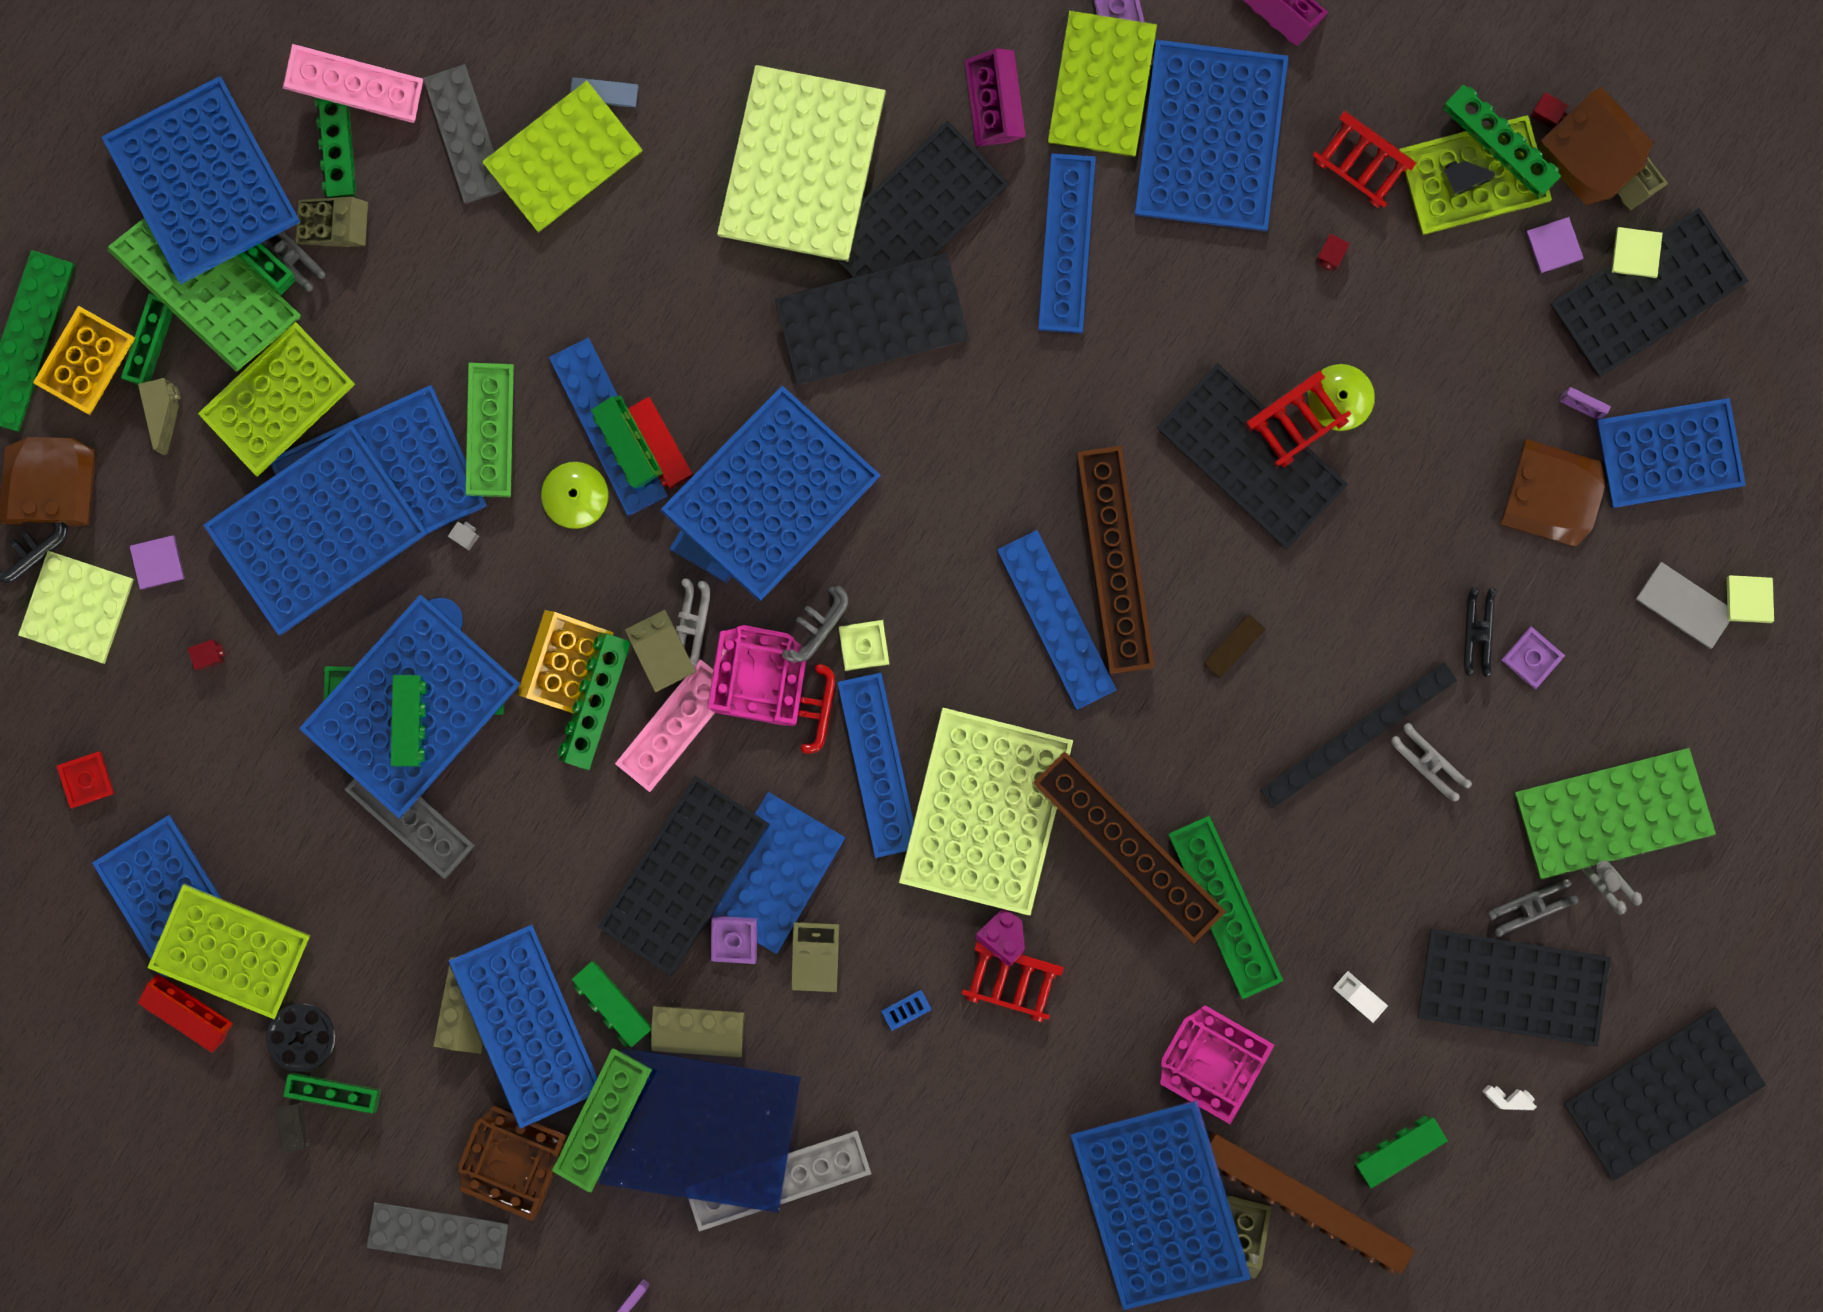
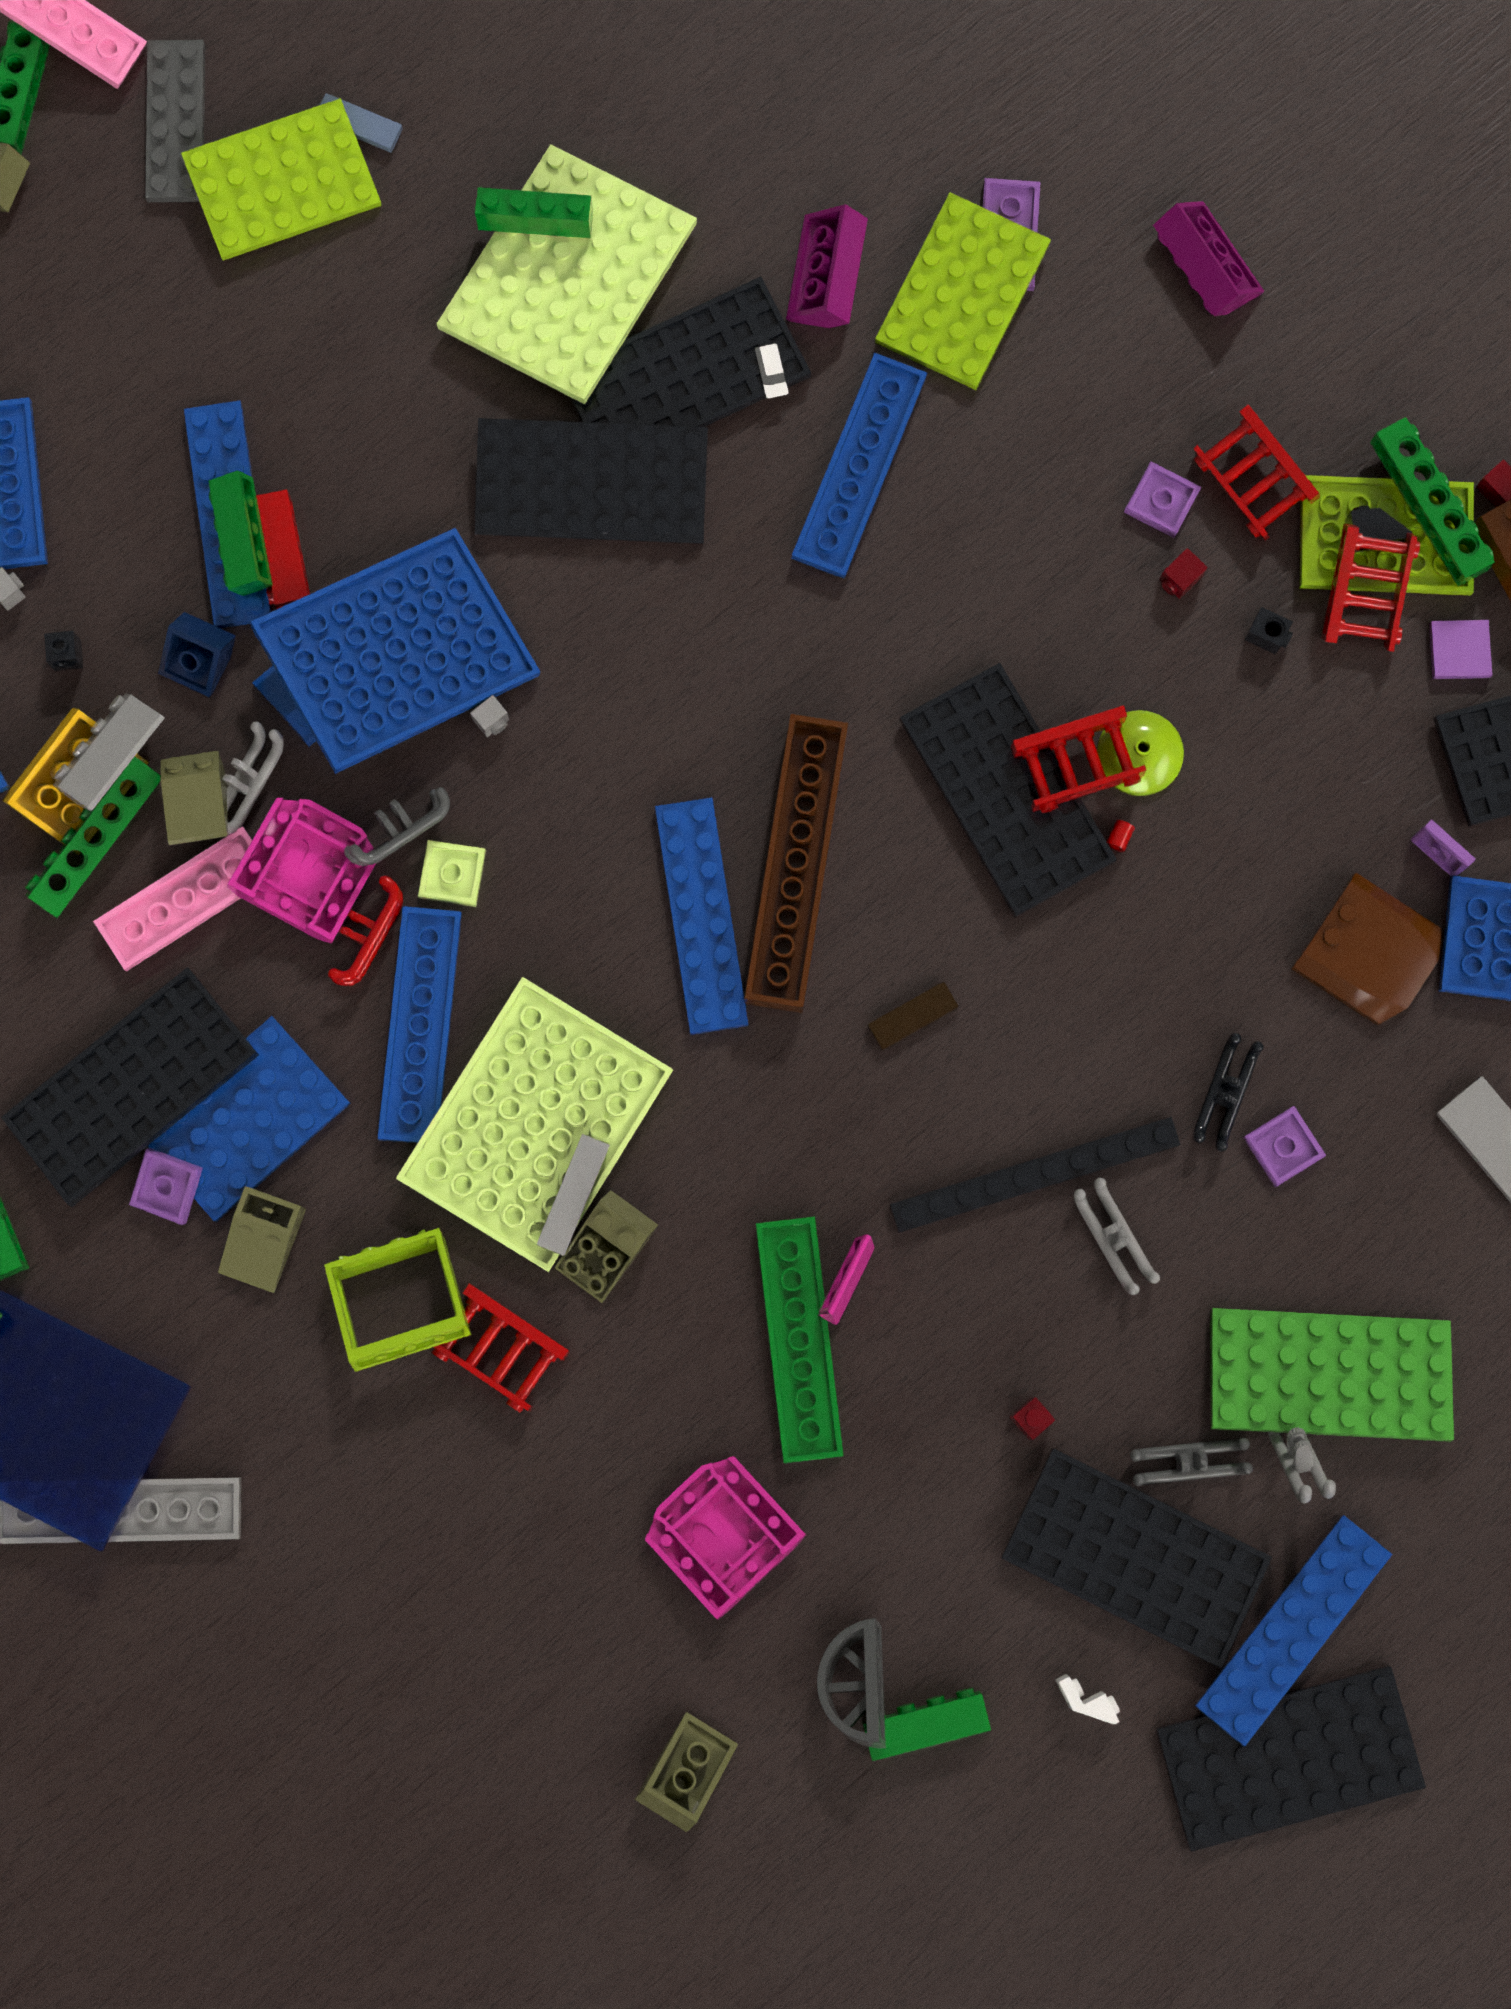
camera: 10 degrees right, 5 degrees down
(489, 430) = (79, 471): bright green plate -> none
(523, 569) = (63, 650): none -> black brick
(585, 506) = (168, 597): lime dish -> none
(587, 637) = (107, 751): none -> light grey slope
(622, 540) = (196, 653): none -> dark blue slope
(697, 1031) = (81, 1287): olive slope -> none
(764, 127) = (534, 212): none -> green brick
(855, 520) = (490, 717): none -> light grey plate
(886, 1012) = (327, 1348): blue slope -> none
(949, 997) = (408, 1342): none -> lime window
(979, 191) = (771, 371): none -> white sticker
(1003, 936) = (504, 1287): magenta plate -> none
(1030, 854) = (573, 1194): none -> light grey tile
(1065, 883) = (606, 1246): none -> olive slope
(1129, 848) = (698, 1223): reddish brown brick -> none
(1160, 1205) = (593, 1698): blue plate -> none
(1211, 135) = (1076, 391): blue plate -> none
(1246, 853) = (847, 1279): none -> dark pink slope
(1300, 198) = (1162, 499): none -> medium lavender tile
(1312, 1206) = (787, 1758): reddish brown brick -> none
(1345, 465) = (1120, 835): none -> red hinge
(1355, 1135) = (873, 1685): none -> dark grey window
(1360, 996) = (935, 1507): white slope -> none
(1400, 279) = (1258, 636): none -> black brick
(1410, 912) = (1032, 1418): none -> dark red brick
(1453, 215) = (1347, 569): none -> red fence
(1640, 1004) = (1293, 1630): none -> blue plate

